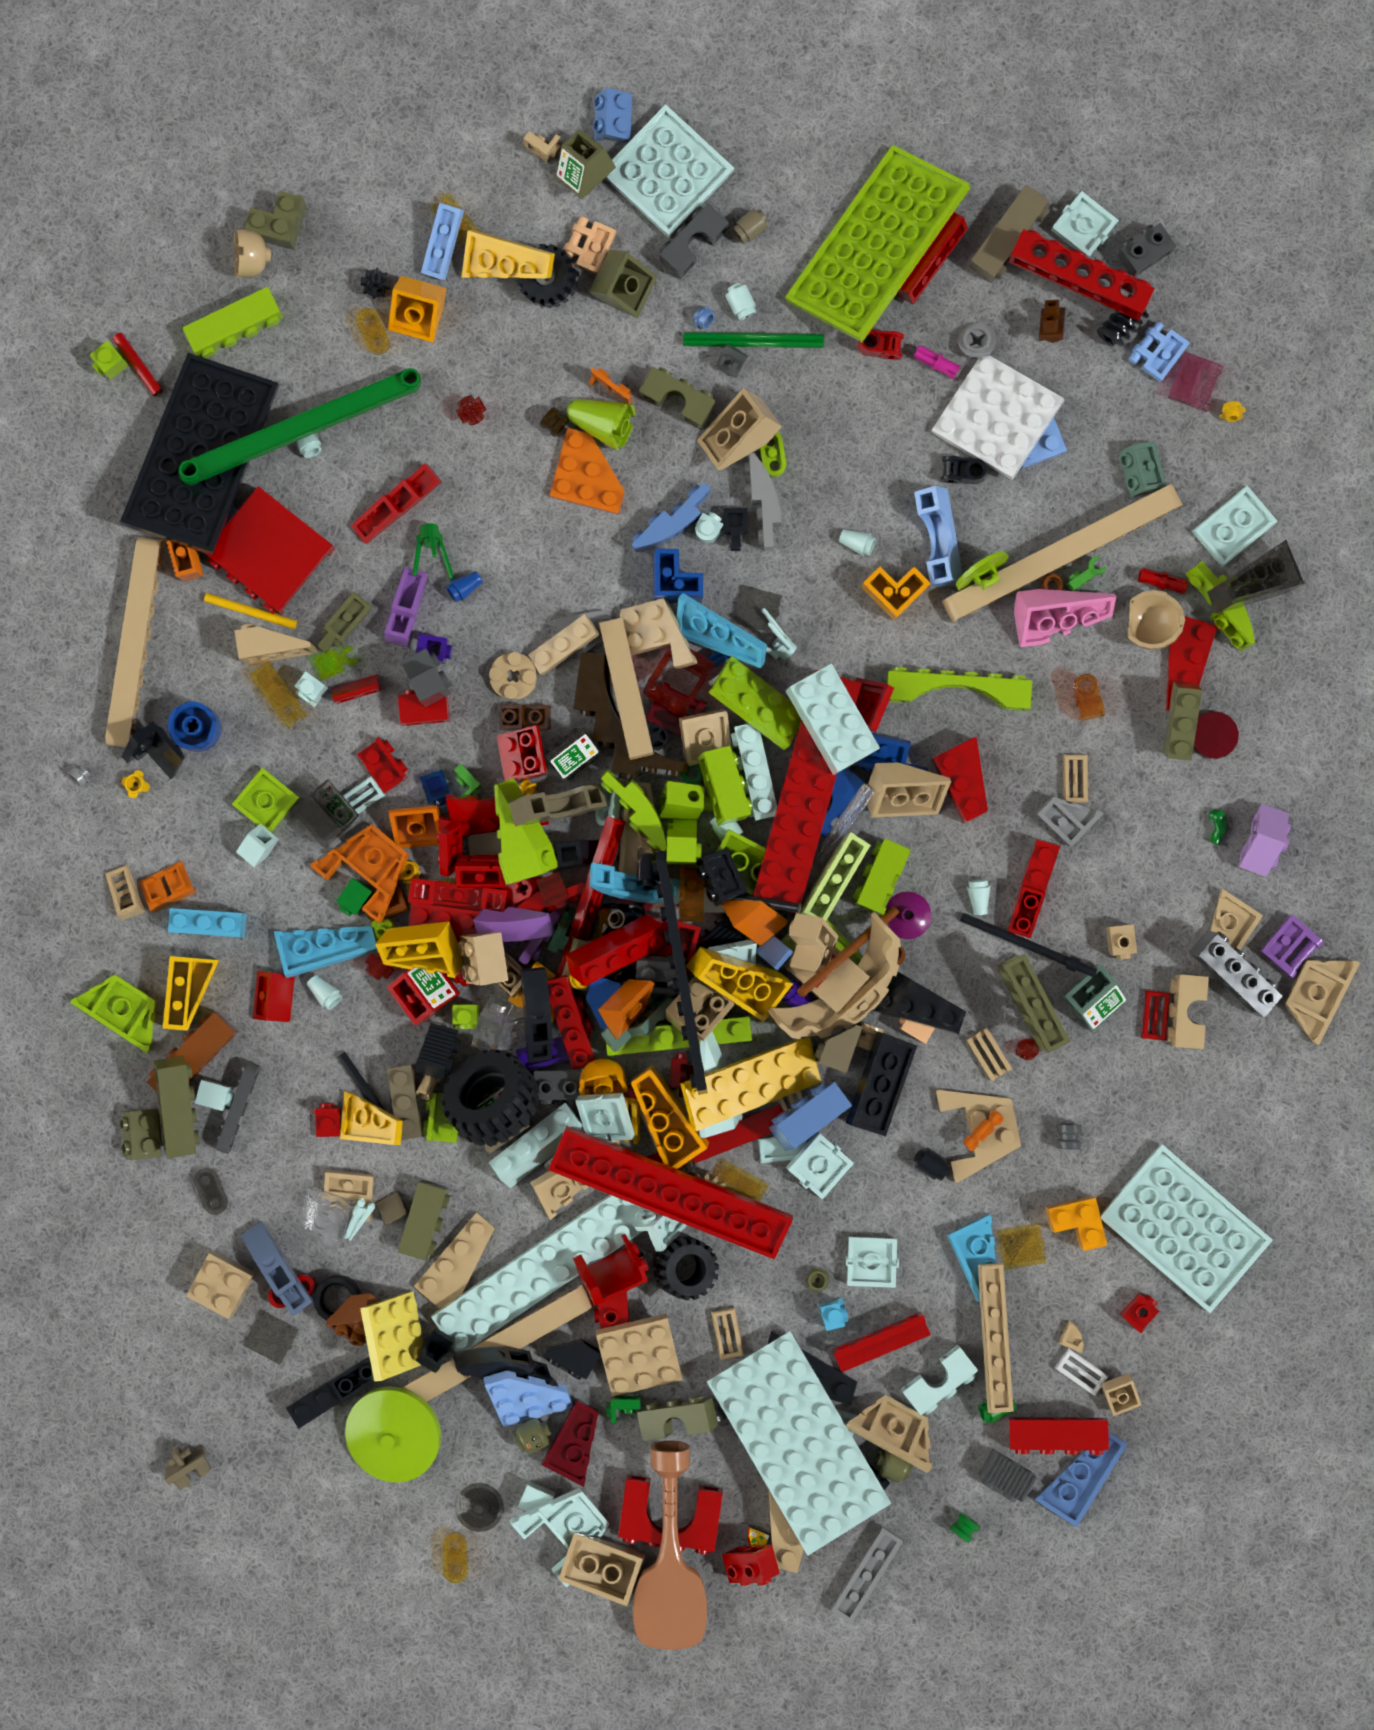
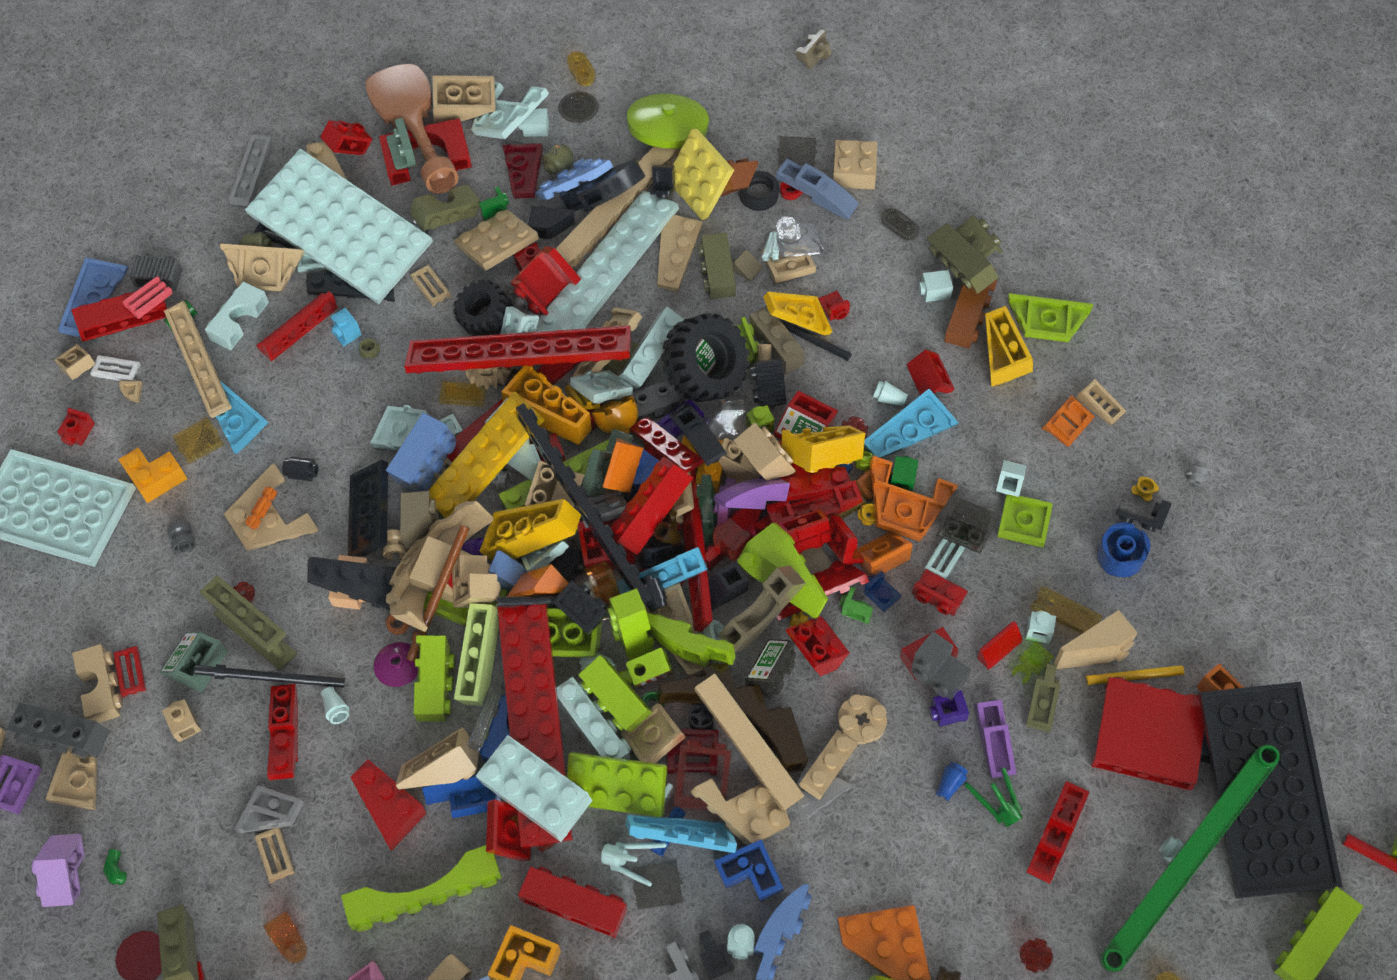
camera: 155 degrees right, 25 degrees down
(133, 641) = (1220, 598): tan beam -> none
(207, 922) = (1001, 408): medium azure arch -> none
(238, 1108) = (912, 285): dark grey beam -> none
(331, 1393) = (734, 126): black slope -> none
(521, 716) = (833, 687): reddish brown slope -> none
(697, 1516) = (400, 146): none -> sand green bracket
(756, 1536) = (349, 162): tile -> none
(835, 622) = (573, 901): none -> red brick
(872, 1261) = (326, 378): light aqua plate -> none
(965, 1527) = (180, 226): green wheel -> none
(999, 1072) = (264, 566): tan tile -> none
(1006, 1442) = (145, 295): none -> coral tile

